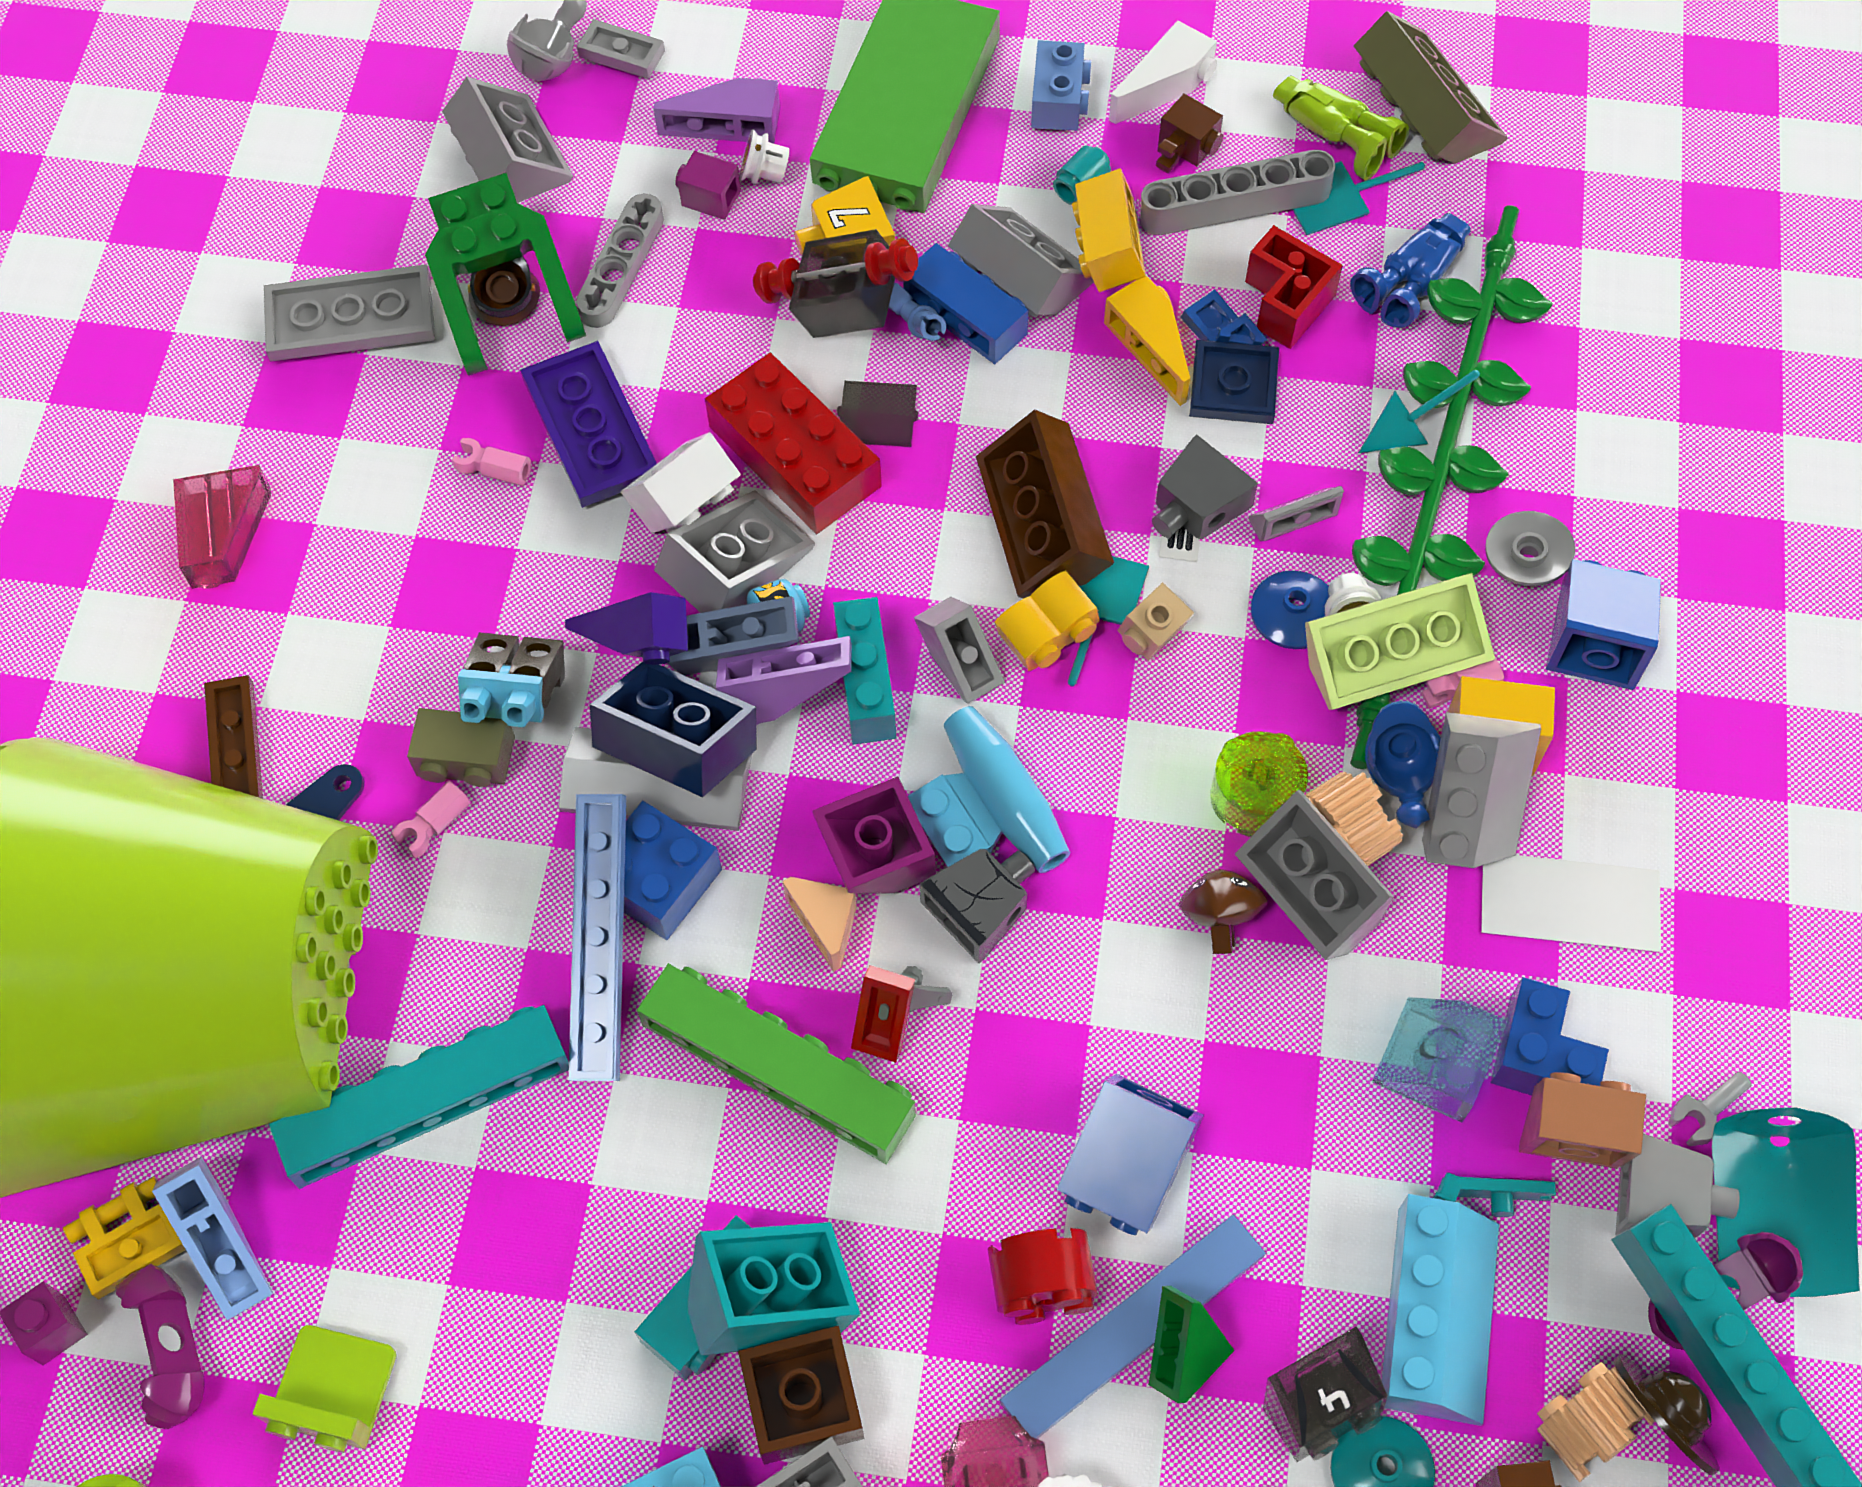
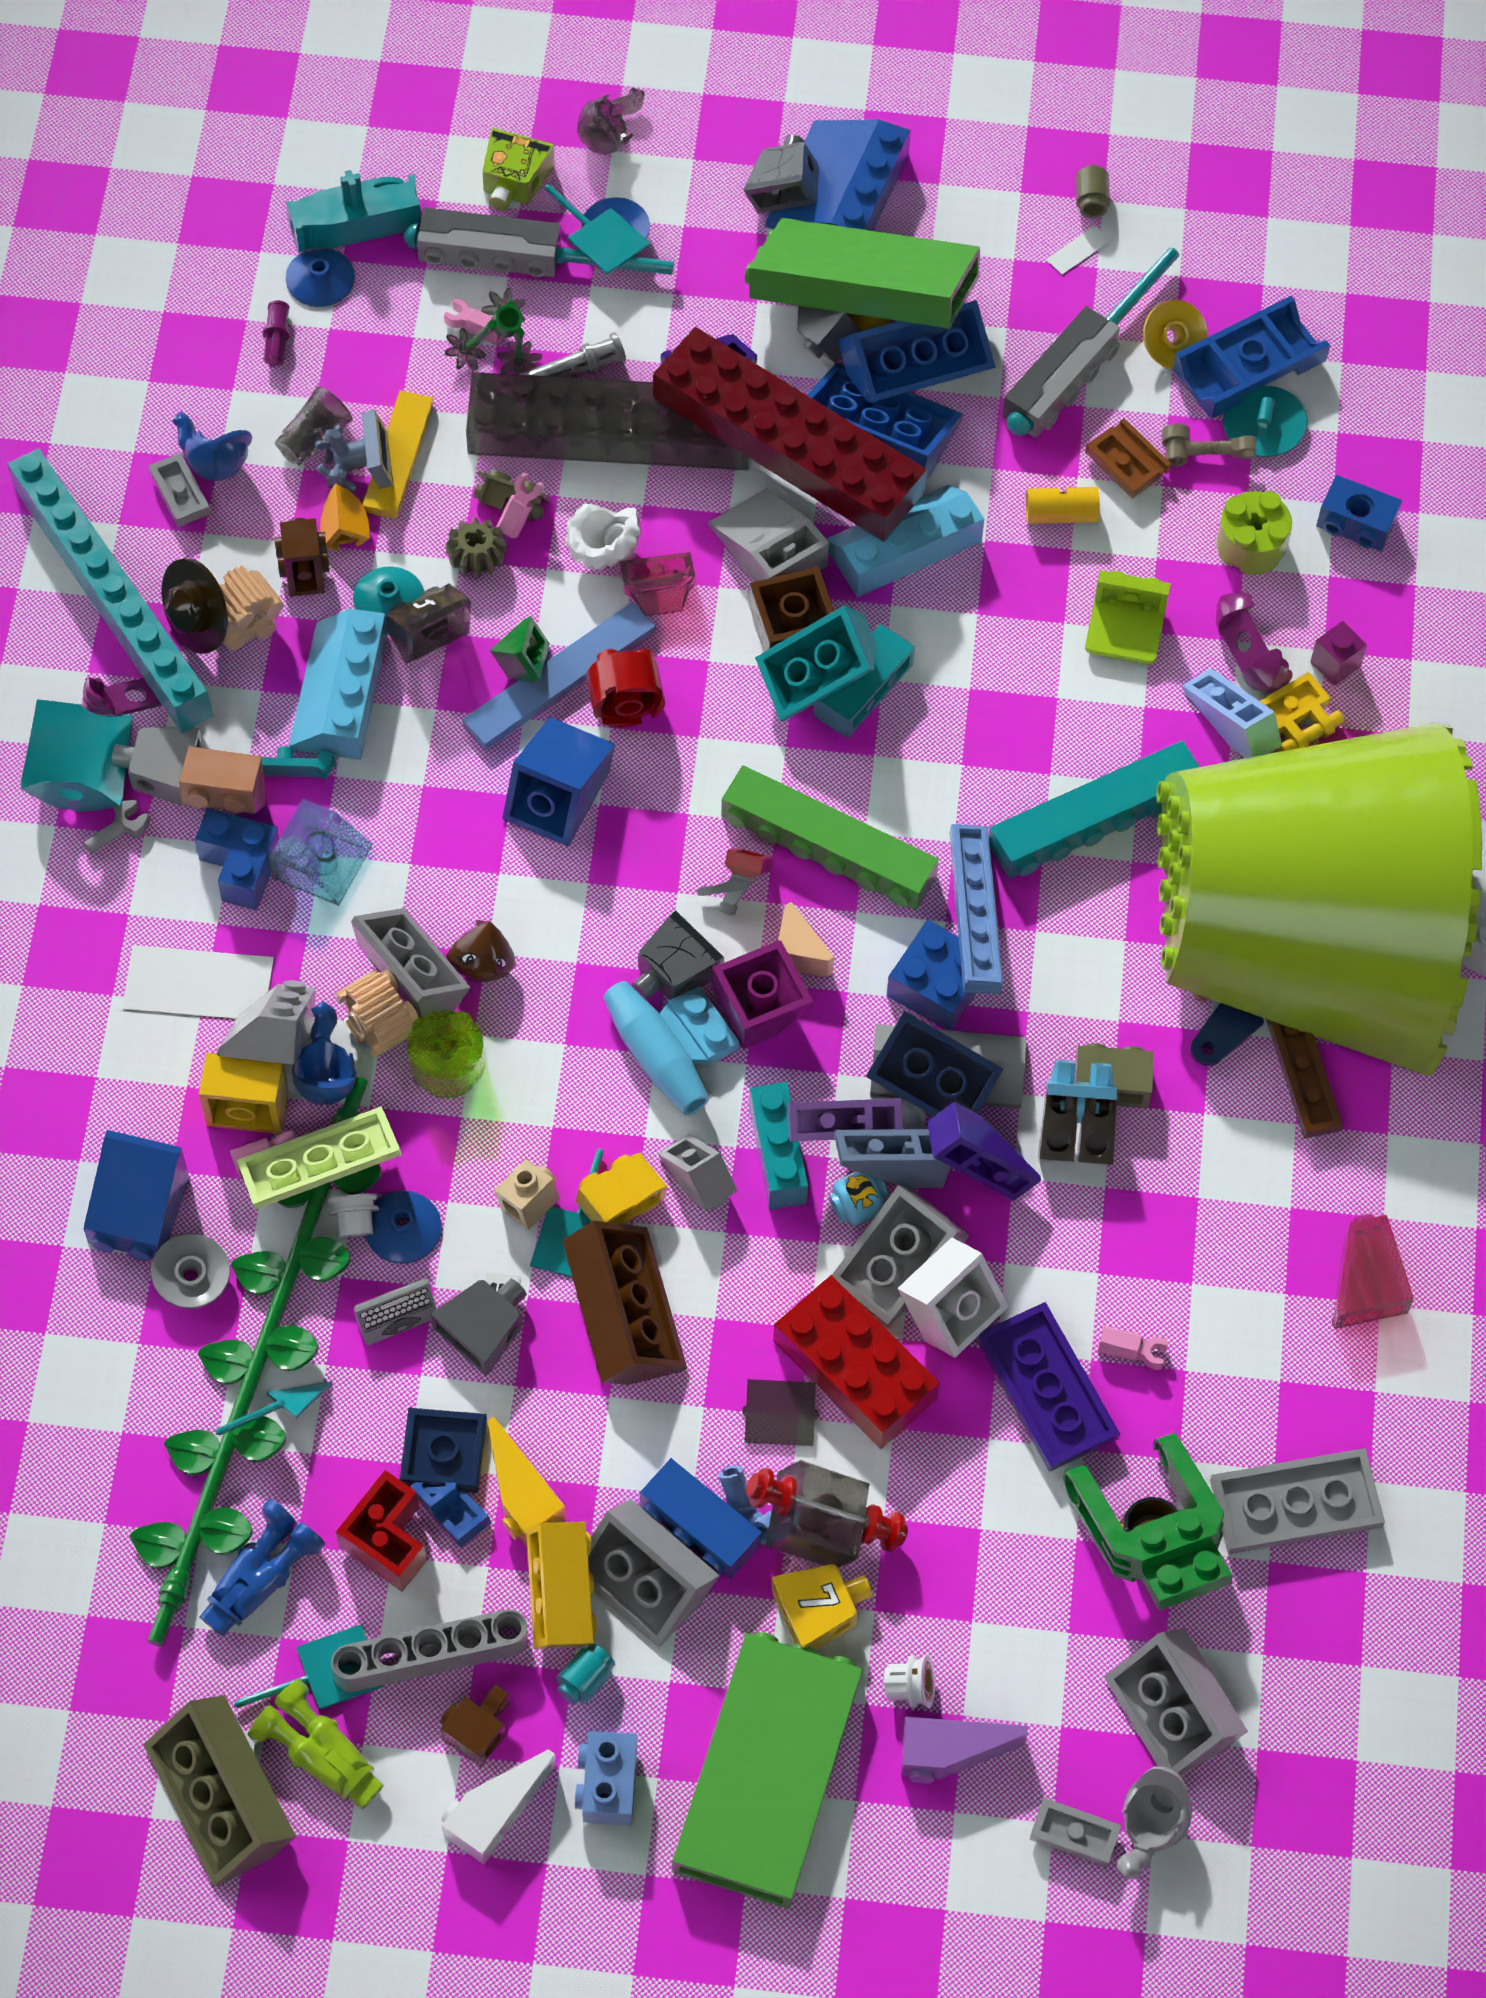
camera: 175 degrees right, 0 degrees up
(432, 818) = (1127, 1023): bright pink bar -> none
(624, 260) = (1045, 1573): light grey beam -> none
(708, 184) = (964, 1653): magenta brick -> none

